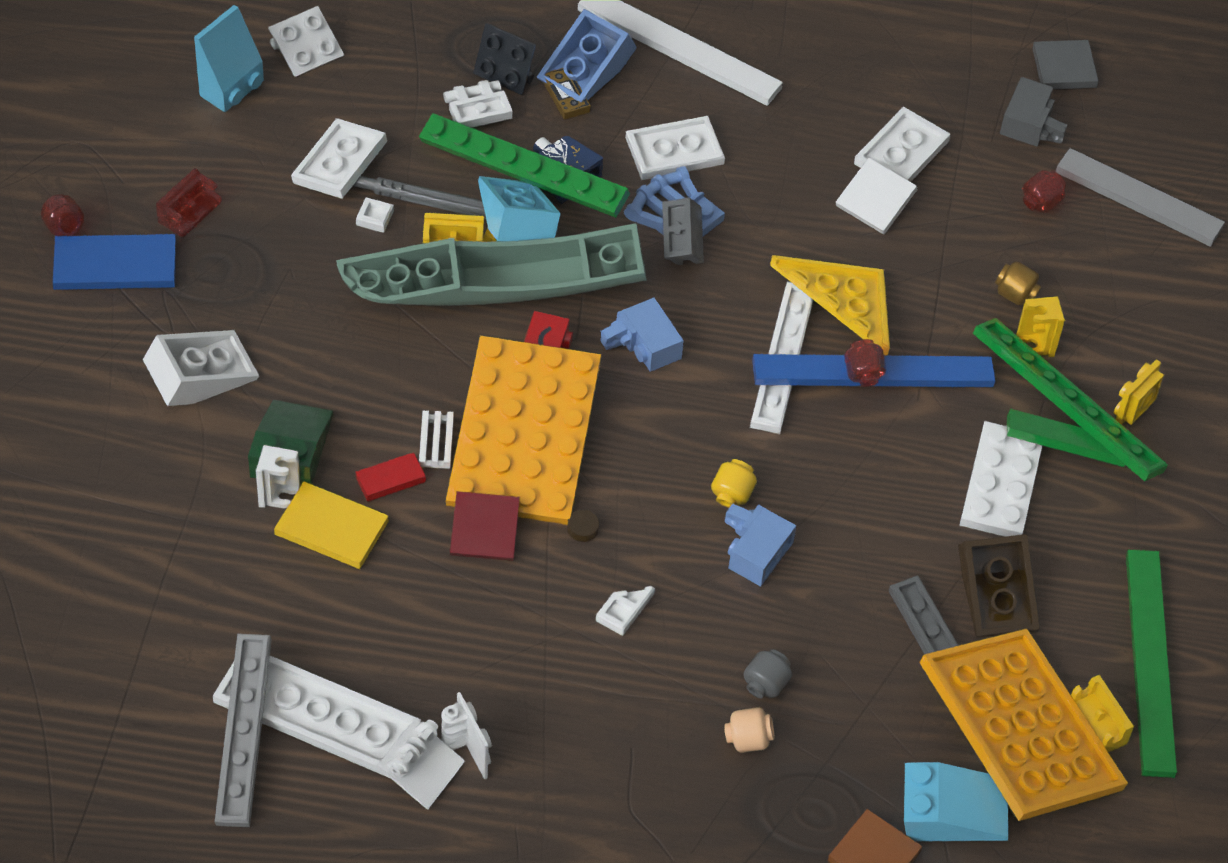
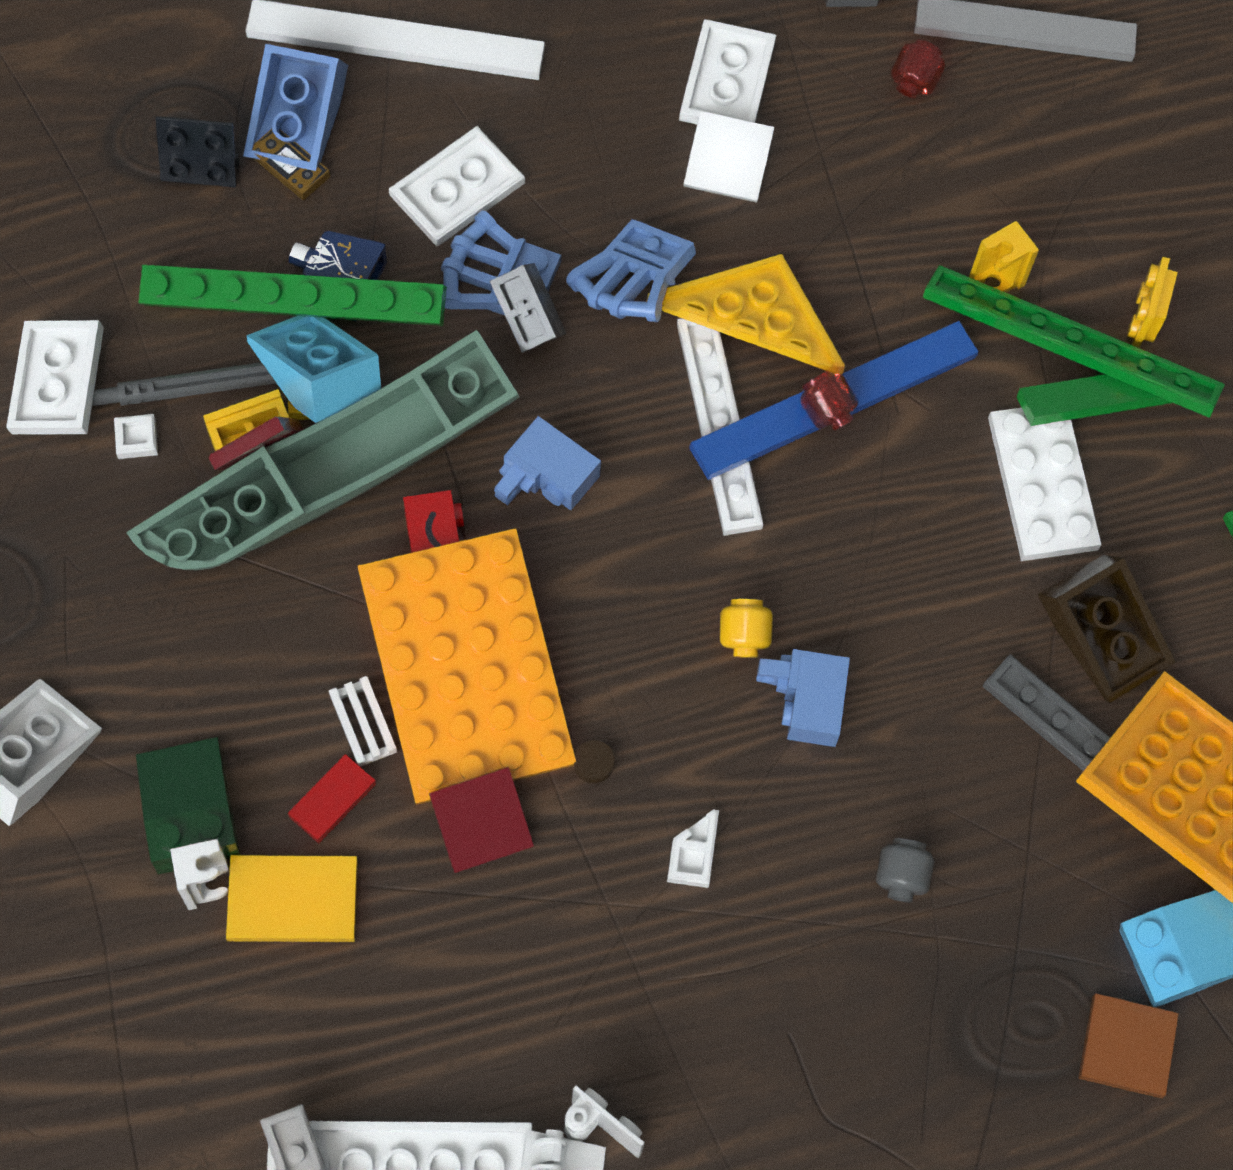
camera: 25 degrees left, 15 degrees up
(459, 229) = (263, 435): none -> dark red tile
(478, 104) = (194, 234): white plate -> none
(750, 729) = (918, 953): light nougat head -> none
(776, 234) = (640, 250): none -> medium blue plate
(1018, 283) = (946, 209): pearl gold head -> none

